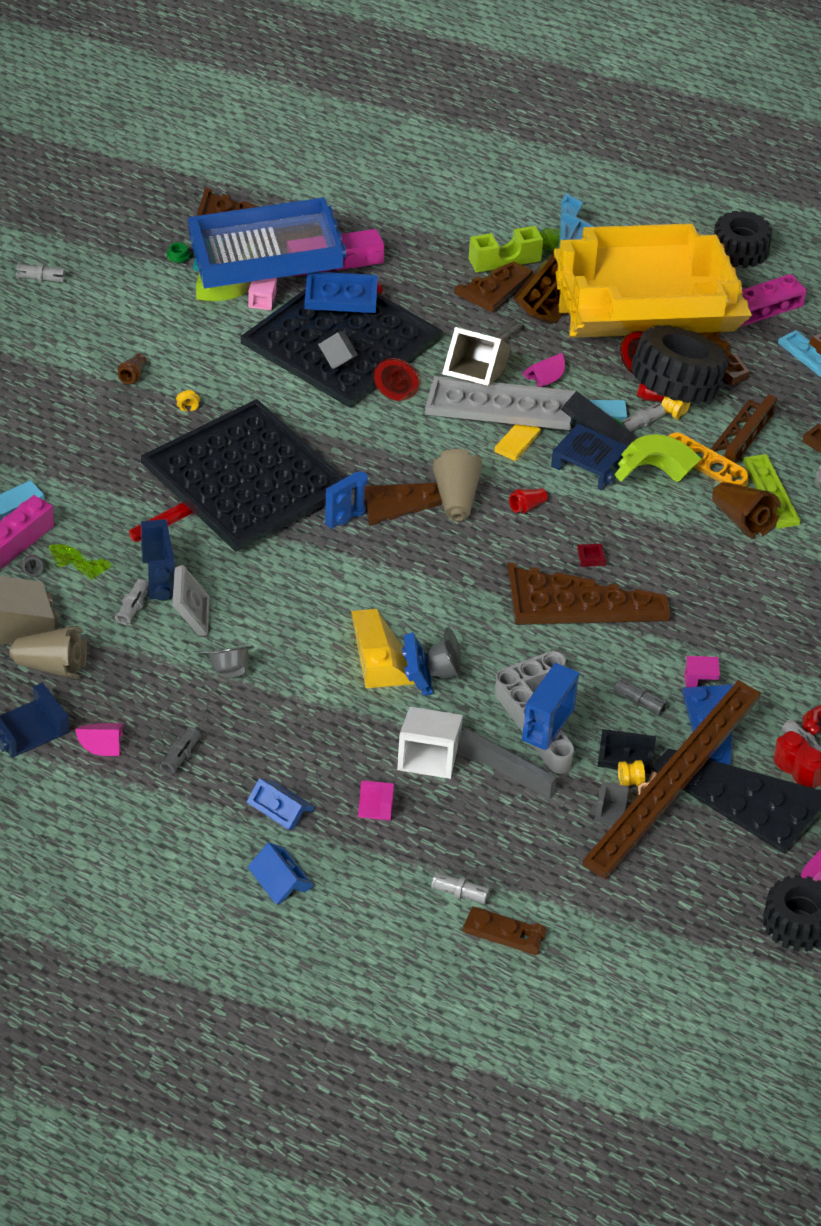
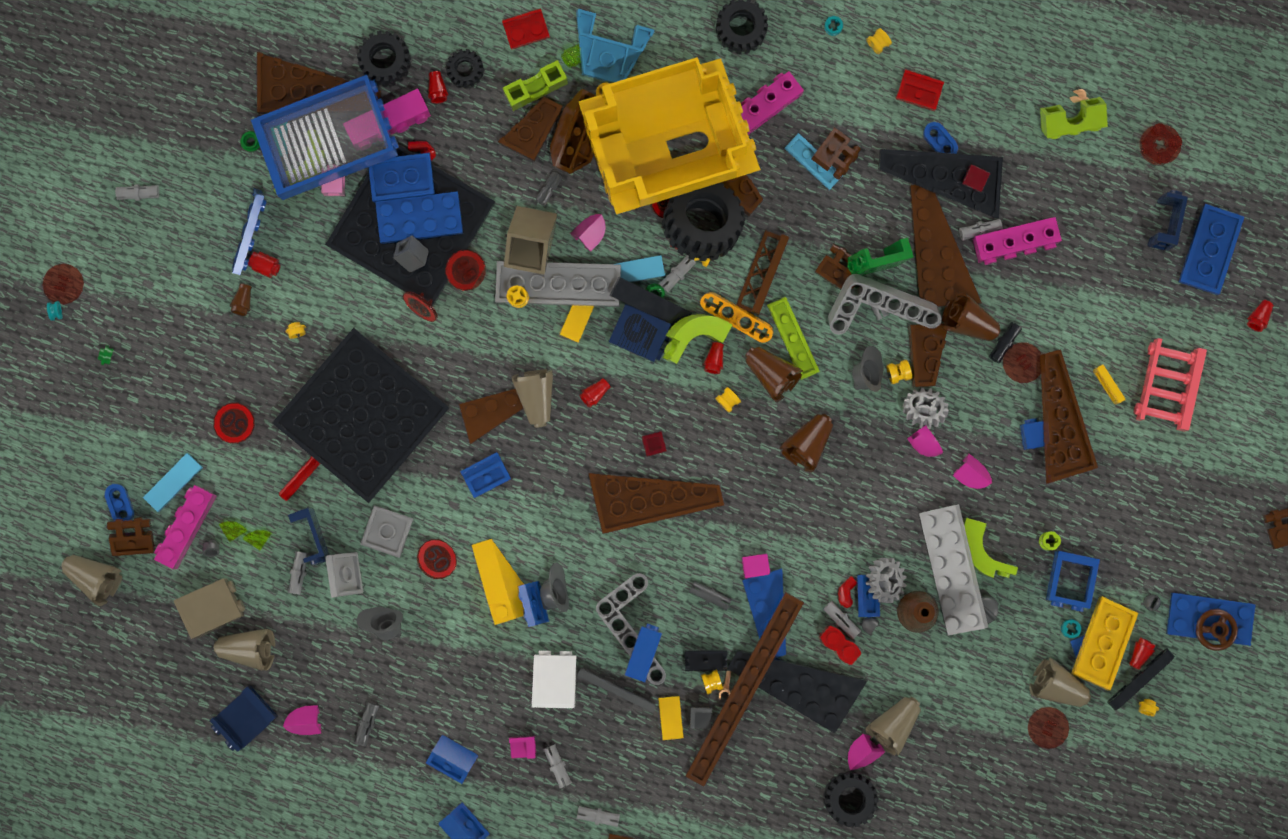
camera: 10 degrees left, 40 degrees up
(94, 461) = (234, 423): none -> piece
(157, 310) = (240, 262): none -> wing
(166, 343) = (264, 264): none -> red brick
(250, 583) = (386, 531): none -> light grey tile
(306, 610) = (436, 559): none -> piece
(338, 392) = (420, 306): none -> piece
(339, 496) = (443, 442): blue plate -> none
(349, 204) = (377, 43): none -> black tyre
(362, 326) = (419, 217): none -> blue plate
(382, 549) = (485, 475): none -> blue plate
(395, 242) = (437, 90): none -> red cone
(416, 829) = (557, 766): none -> light grey pin
(429, 223) = (464, 56): none -> black tyre
(453, 399) = (513, 295): none -> yellow wheel
(502, 215) = (525, 29): none -> red plate
(572, 806) = (671, 718): none -> yellow tile
(674, 493) = (714, 359): none -> red cone
(687, 525) = (728, 399): none -> yellow wheel
(776, 572) = (808, 442): none -> reddish brown cone

